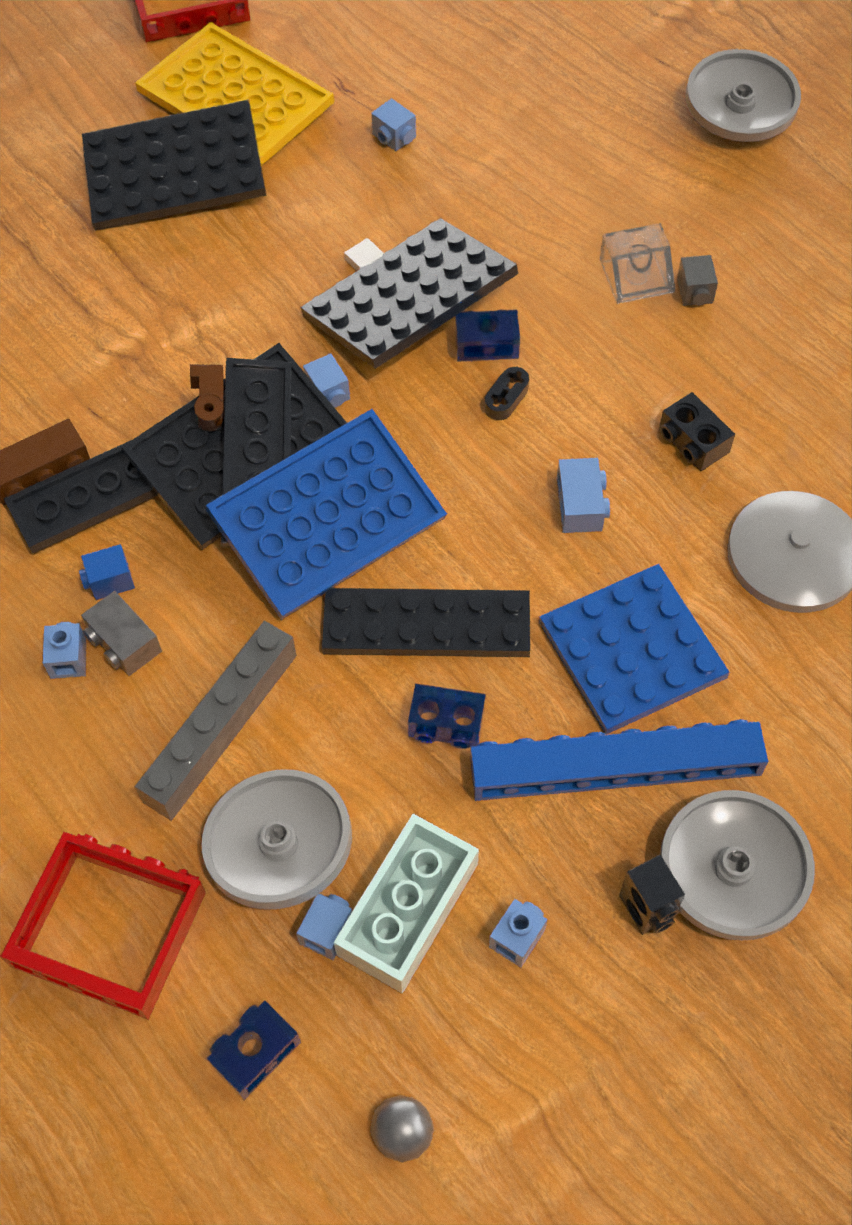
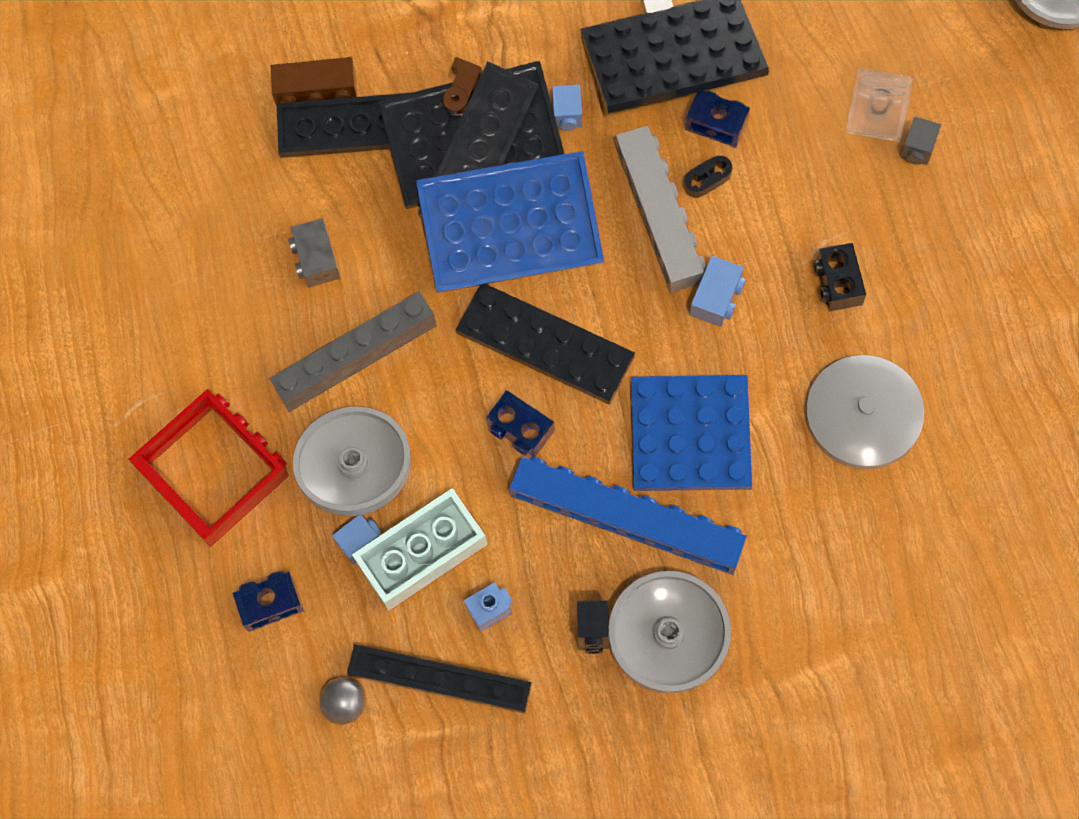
camera: 30 degrees right, 10 degrees up
(64, 650) = (268, 248): medium blue brick -> none
(106, 572) = (326, 198): blue brick -> none
(477, 441) = (659, 209): none -> light grey brick
(504, 1044) = (439, 679): none -> black plate

